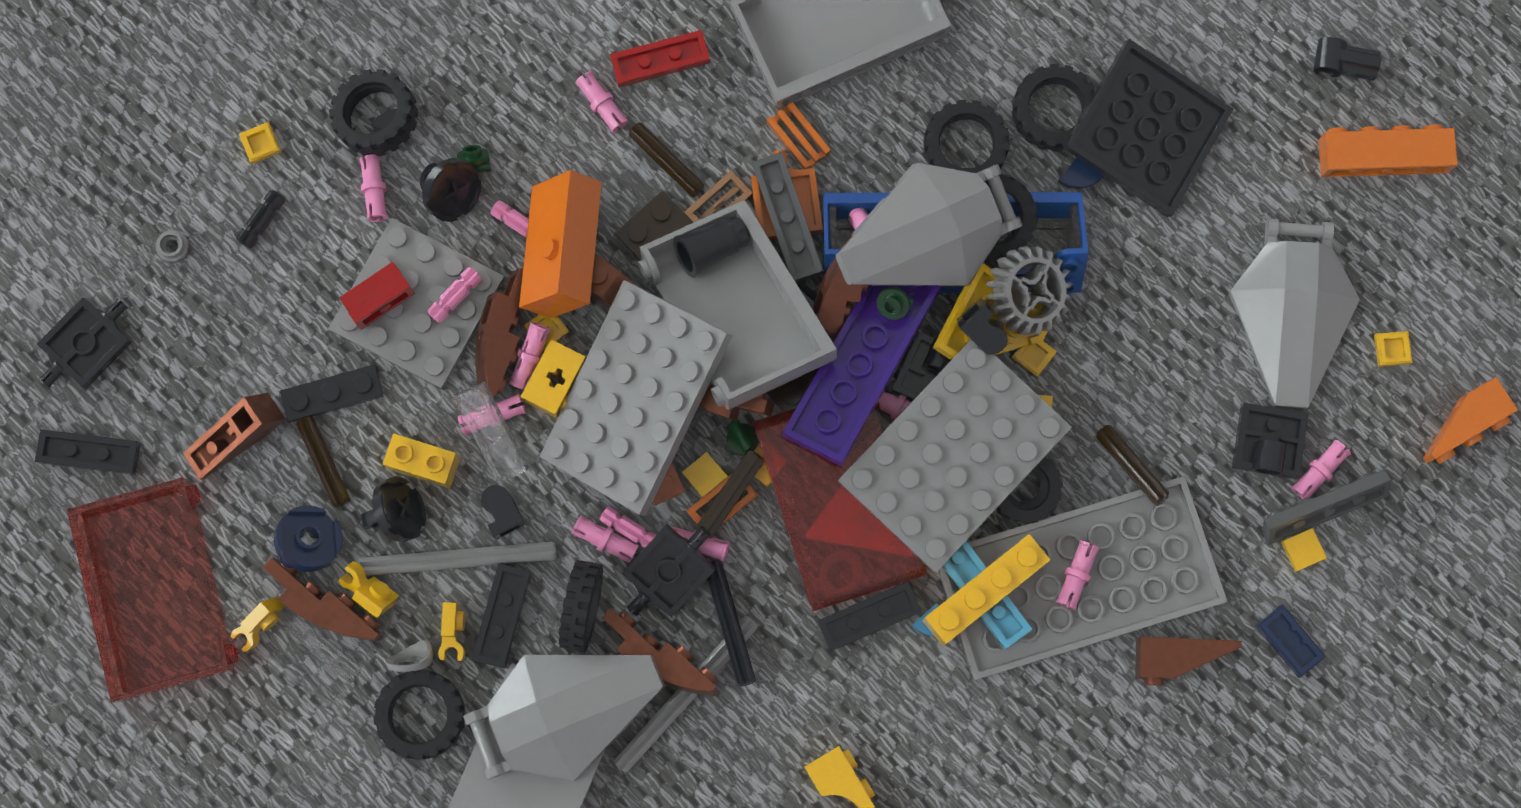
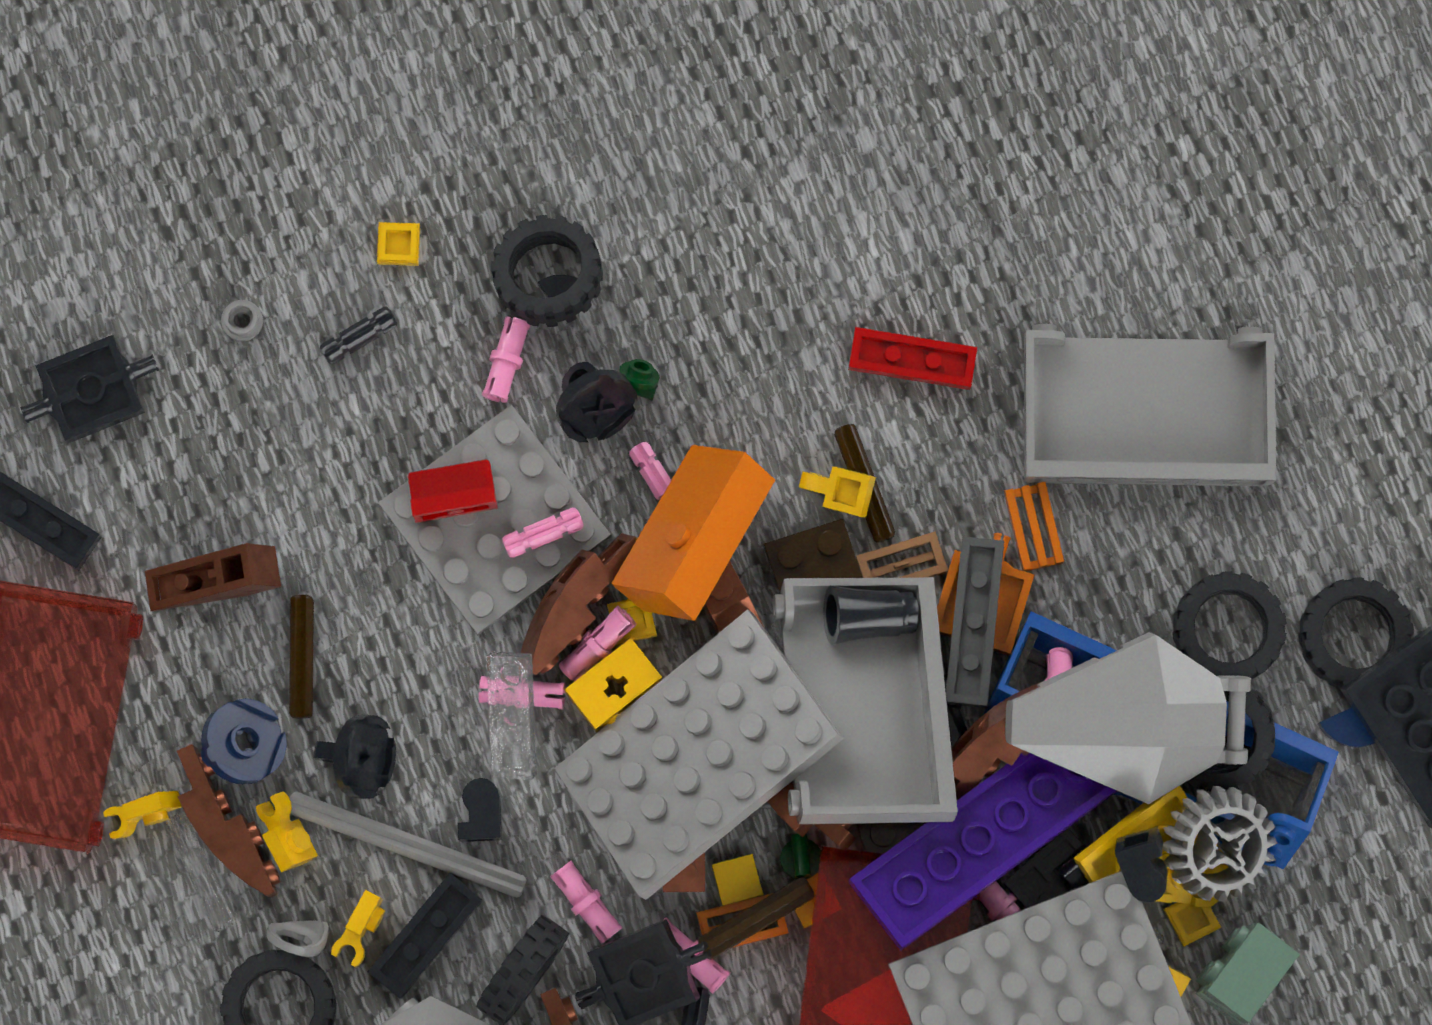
camera: 20 degrees right, 0 degrees up
(331, 393) = (347, 580): black plate -> none
(421, 461) = (415, 710): yellow brick -> none
(601, 102) = (820, 379): bright pink pin -> none
(626, 527) = (618, 899): bright pink axle -> none
(654, 170) = (843, 490): none -> yellow plate
(894, 303) = (1051, 786): dark green plate -> none
(1090, 372) = (1246, 972): none -> sand green piece

